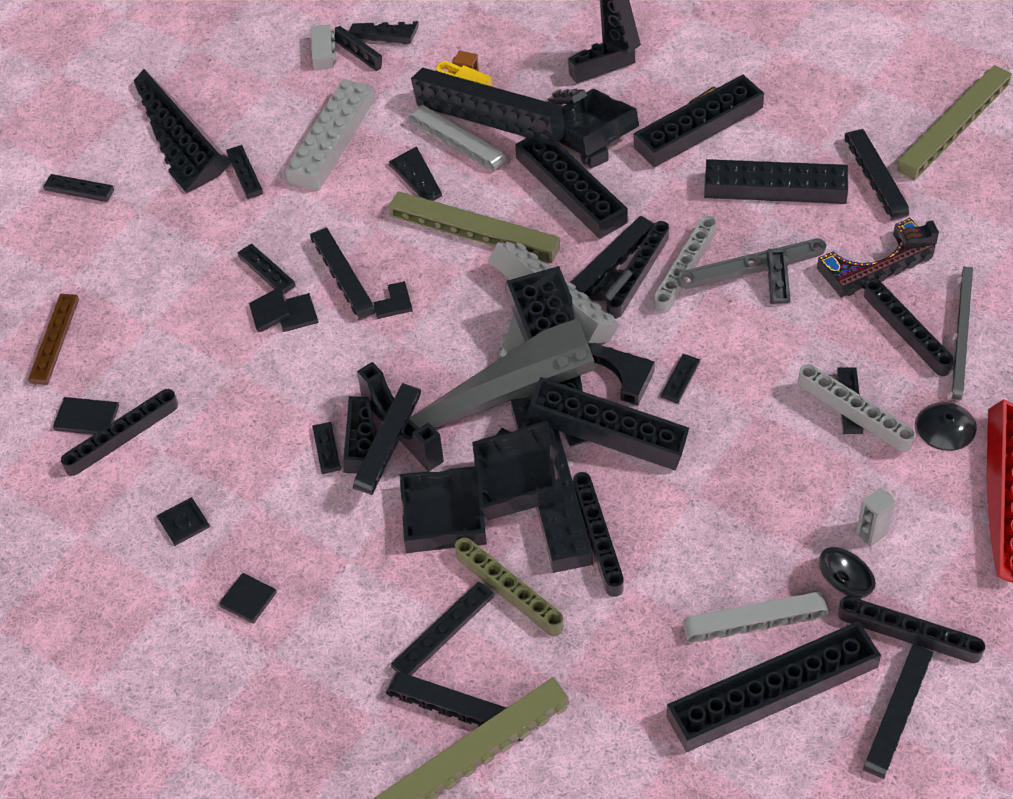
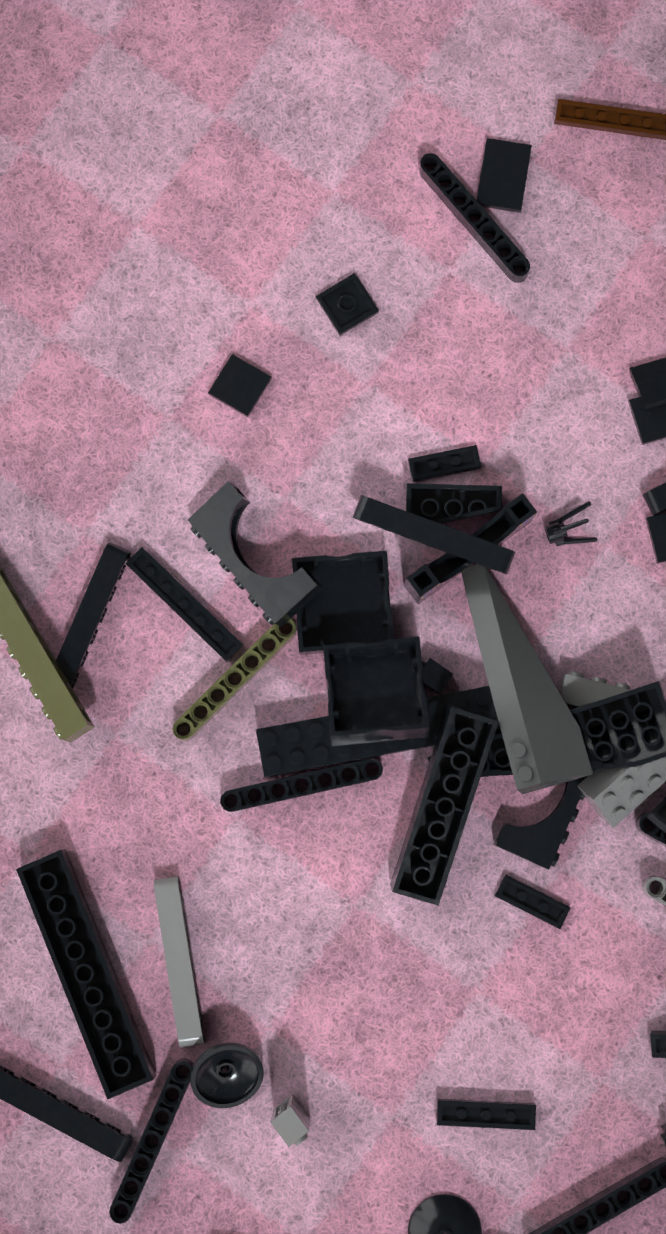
camera: 90 degrees right, 30 degrees up
(376, 601) = (218, 526): none -> black arch
(388, 369) = (556, 531): none -> black plant
(856, 408) = (458, 1130): light grey beam -> none

